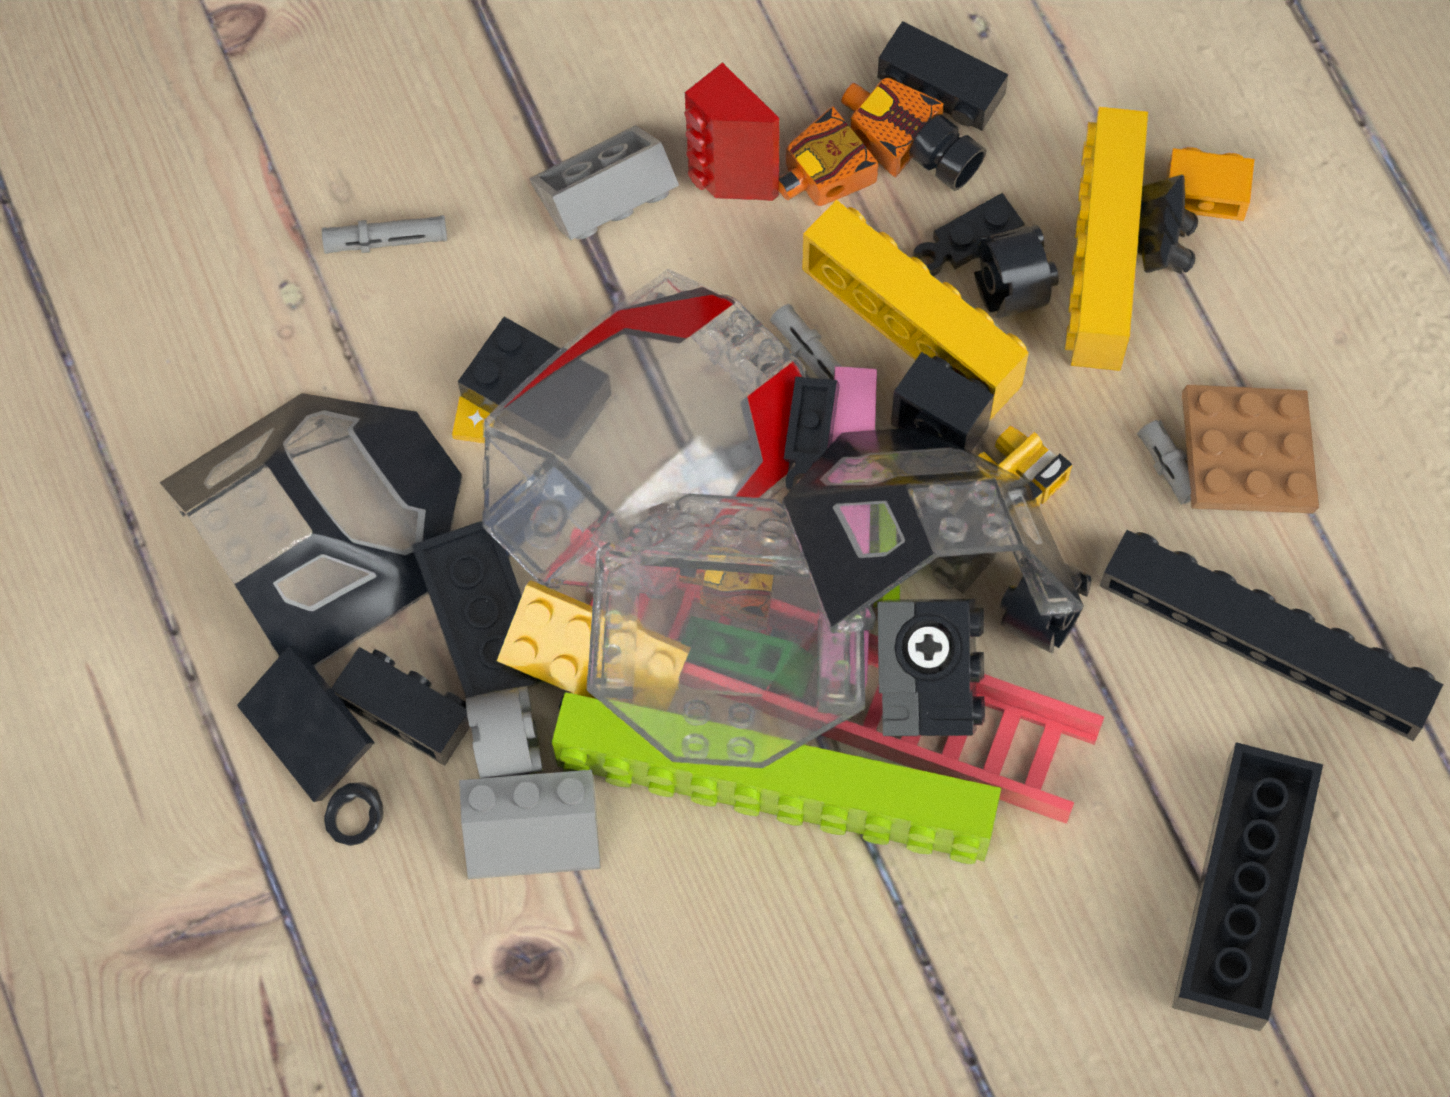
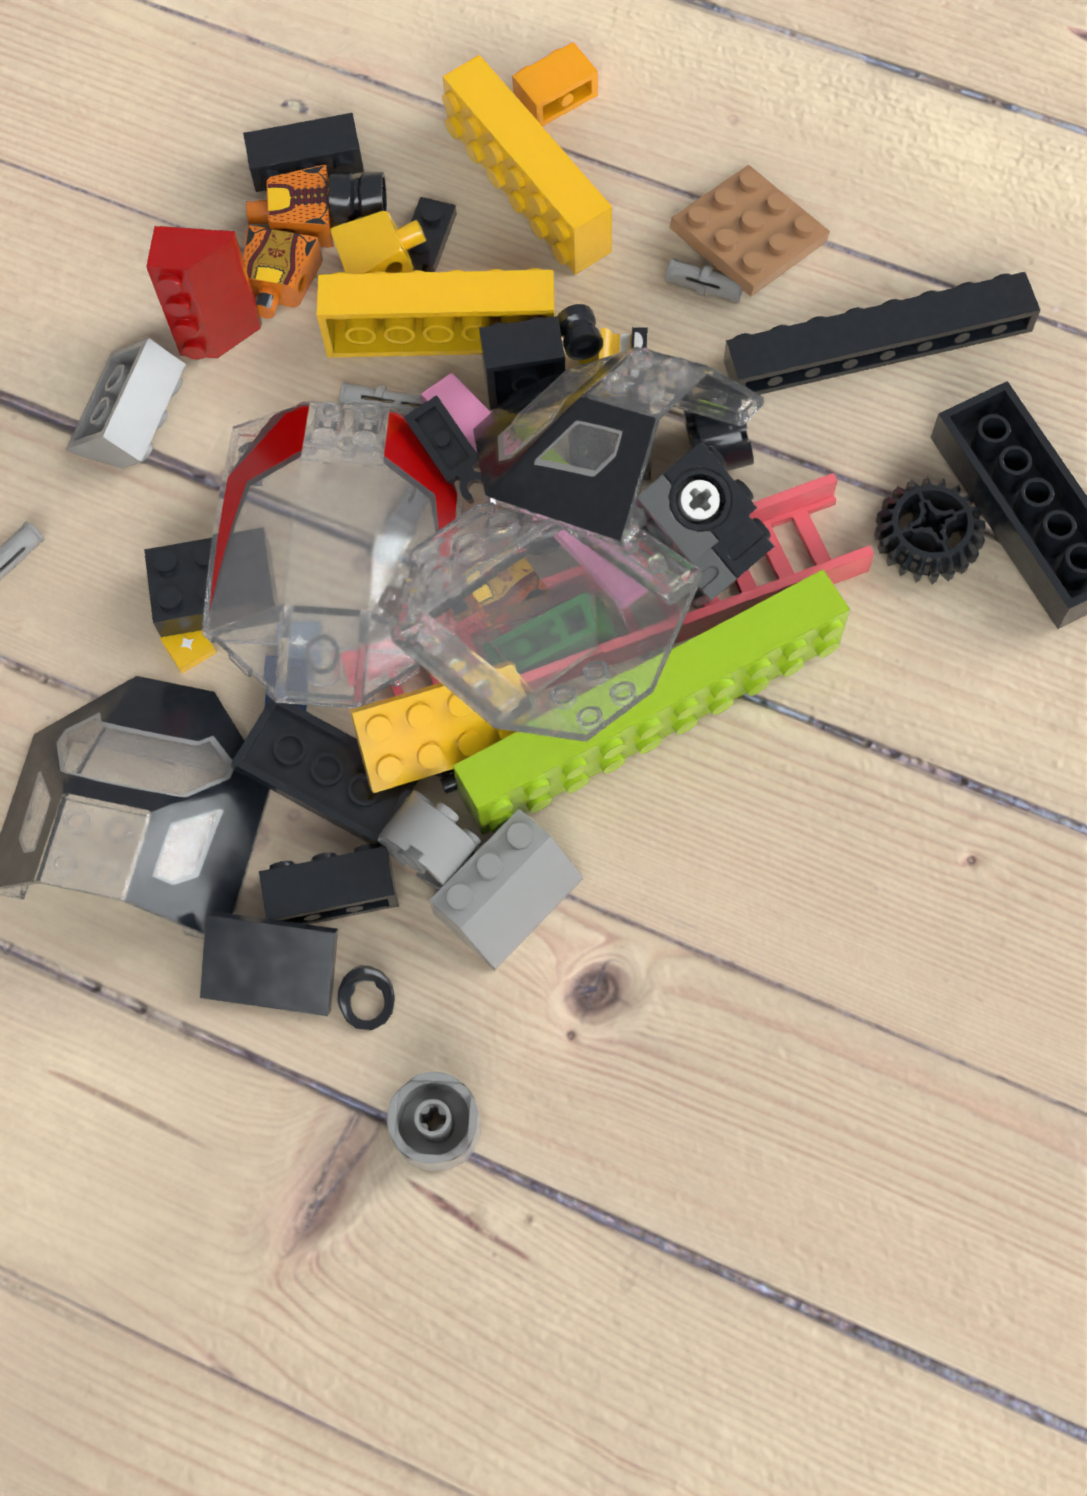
camera: 40 degrees left, 0 degrees up
(322, 928) = (416, 1103): none -> light grey brick
(917, 211) = (376, 244): none -> yellow torso
(1009, 418) = (579, 332): none -> black wheel
(1014, 271) = (482, 233): black brick -> none
(1159, 838) = (923, 543): none -> black gear
(1161, 224) = (559, 124): black connector -> none

